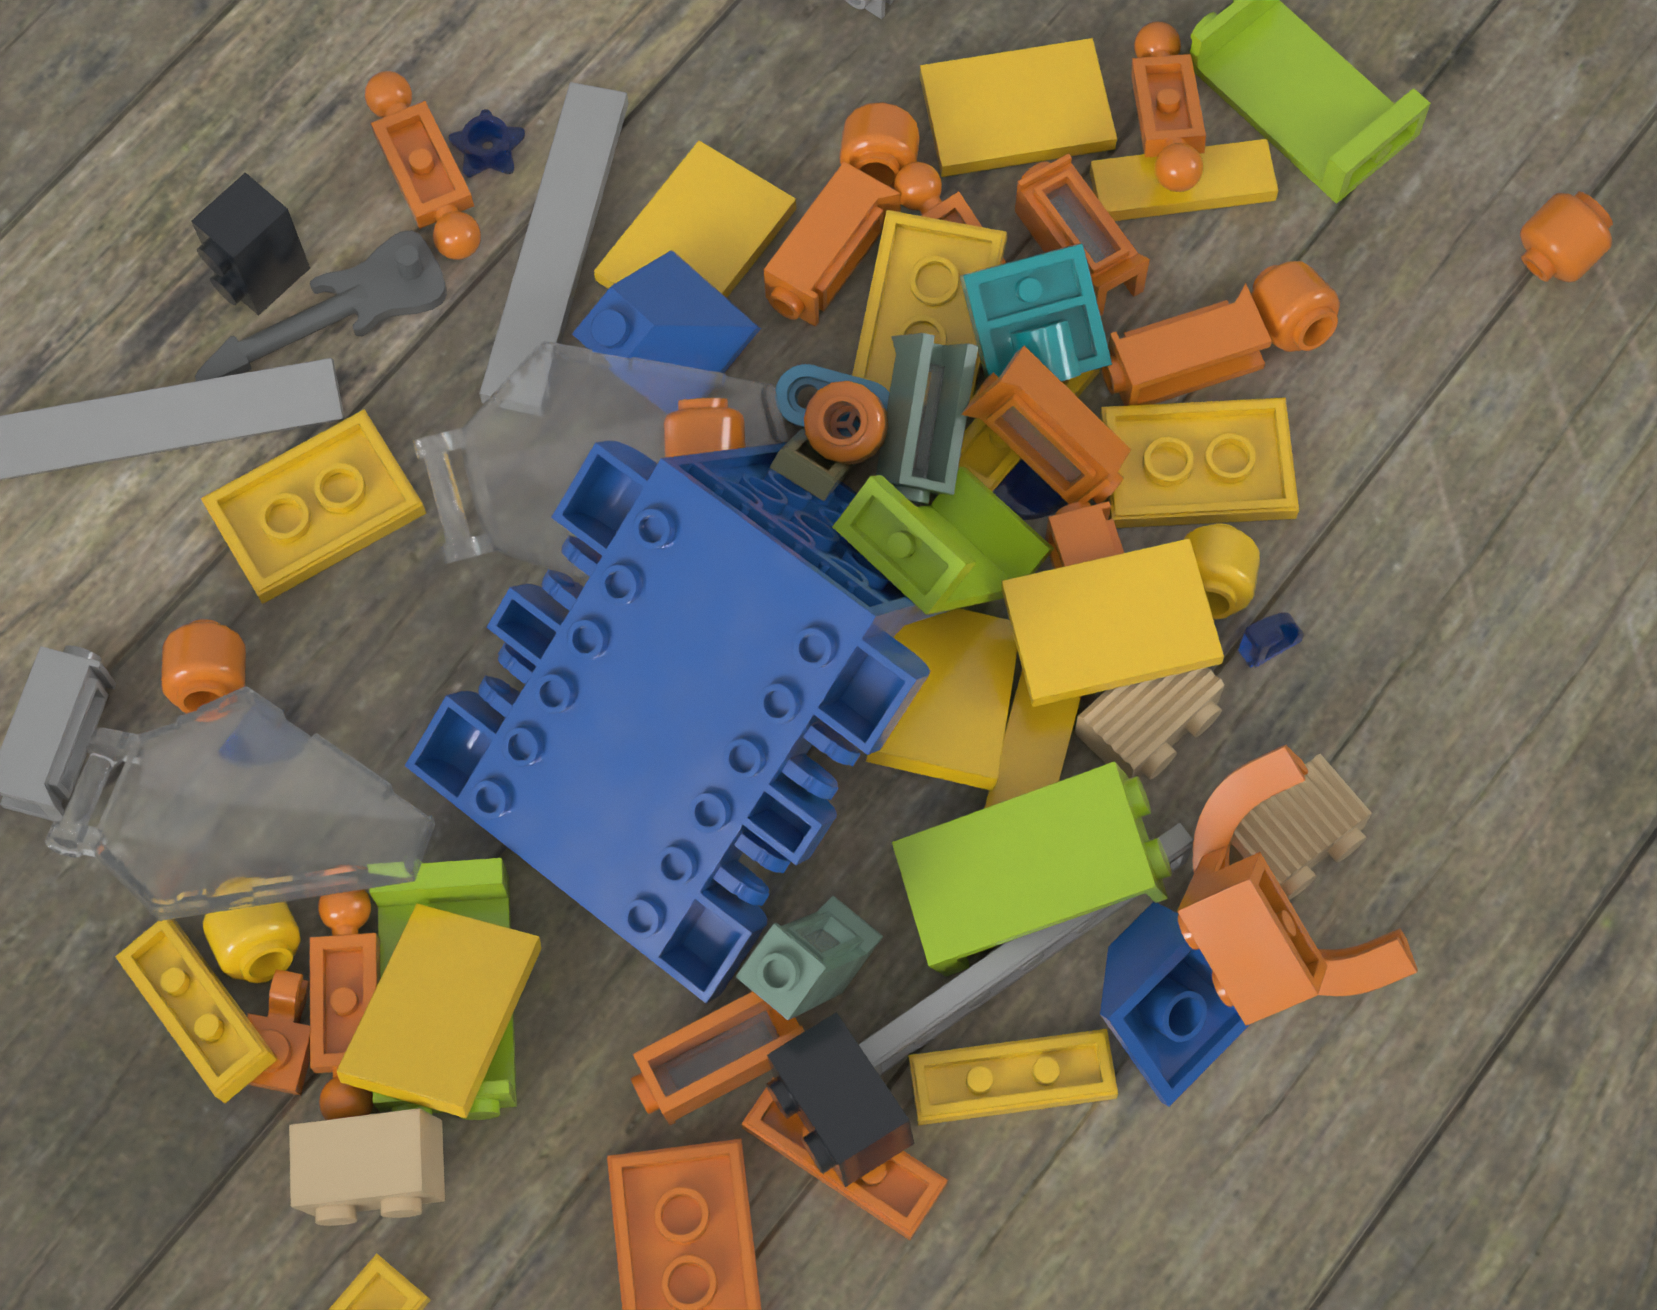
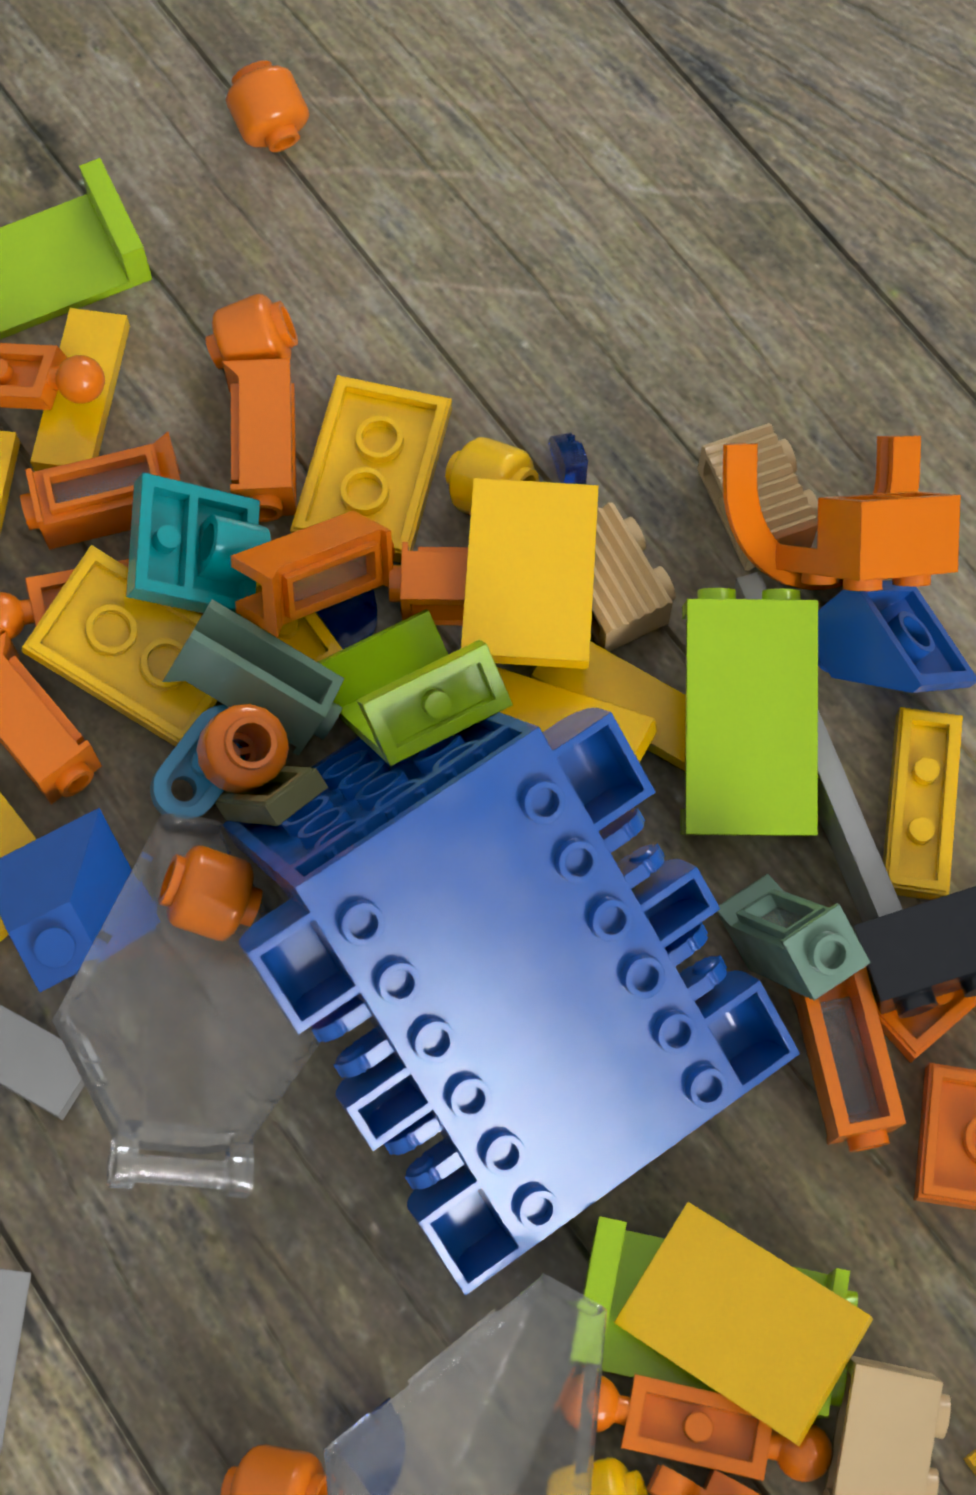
camera: 75 degrees left, 0 degrees up
(313, 506) = (119, 1333): yellow tile -> none

